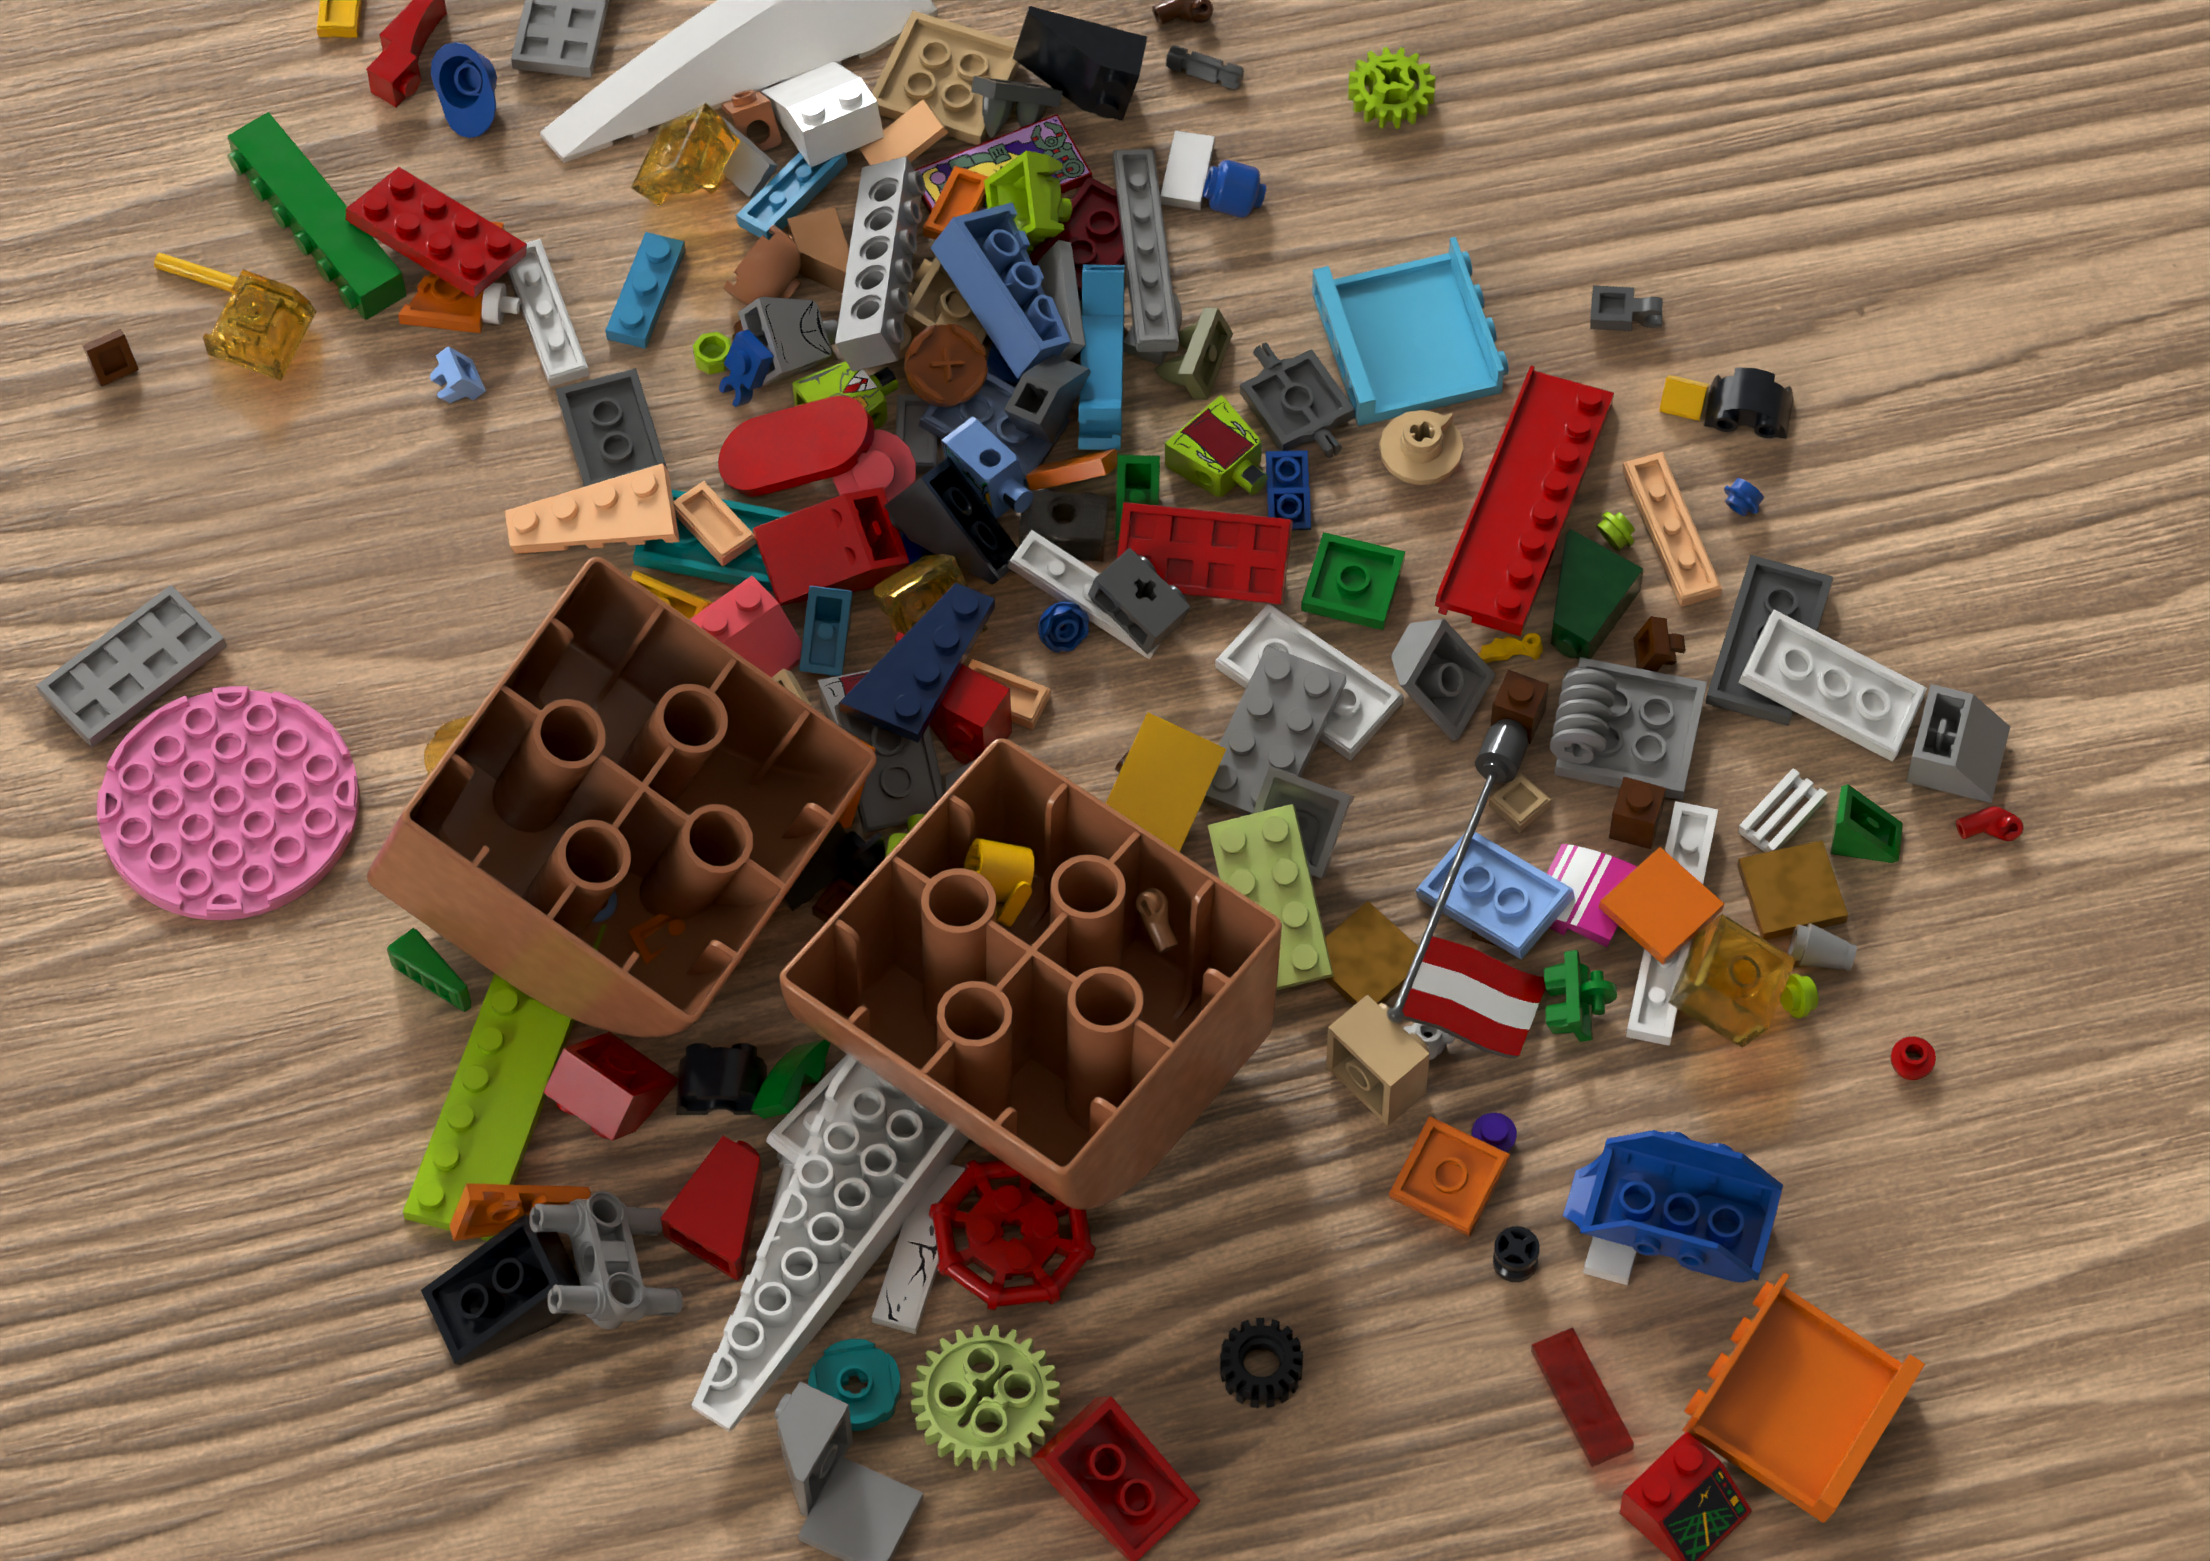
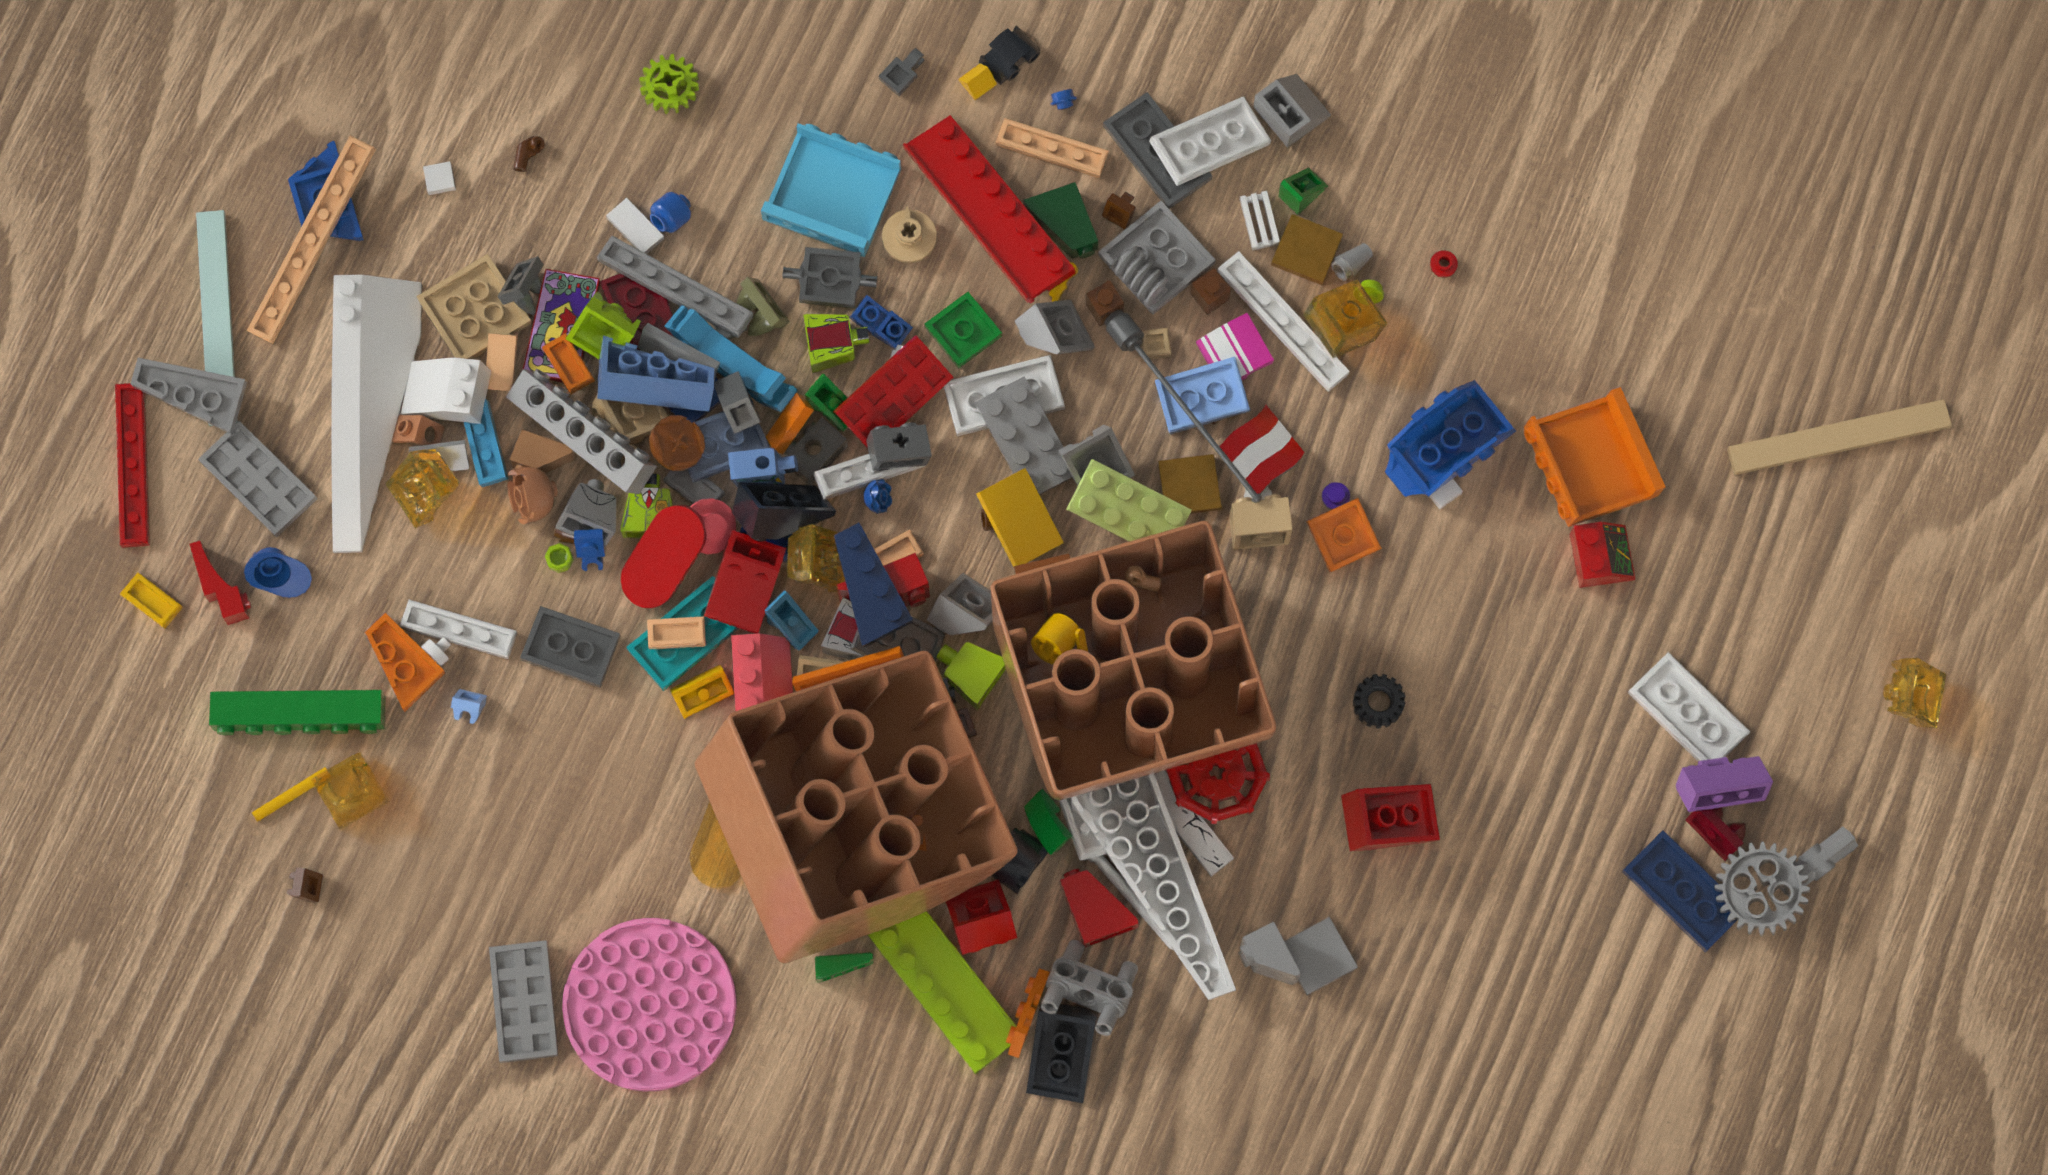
camera: 55 degrees left, 15 degrees up
(436, 232) = (368, 653): red plate -> none
(610, 511) = (627, 683): light nougat wing -> none
(645, 290) = (486, 565): dark azure plate -> none
(871, 1365) = (1237, 895): teal plate -> none
(952, 1376) = (1275, 856): yellowish green gear -> none
(1083, 59) = (535, 231): black slope -> none
(1204, 67) = (574, 169): dark grey axle -> none
(1520, 1244) = (1410, 528): black wheel -> none
(1574, 981) = (1279, 393): green hips -> none
(1582, 1397) = (1507, 560): clear red tile -> none
(1616, 530) = (1035, 176): lime plate -> none
(1661, 905) = (1275, 320): orange tile -> none
(1991, 821) = (1342, 124): red arm -> none

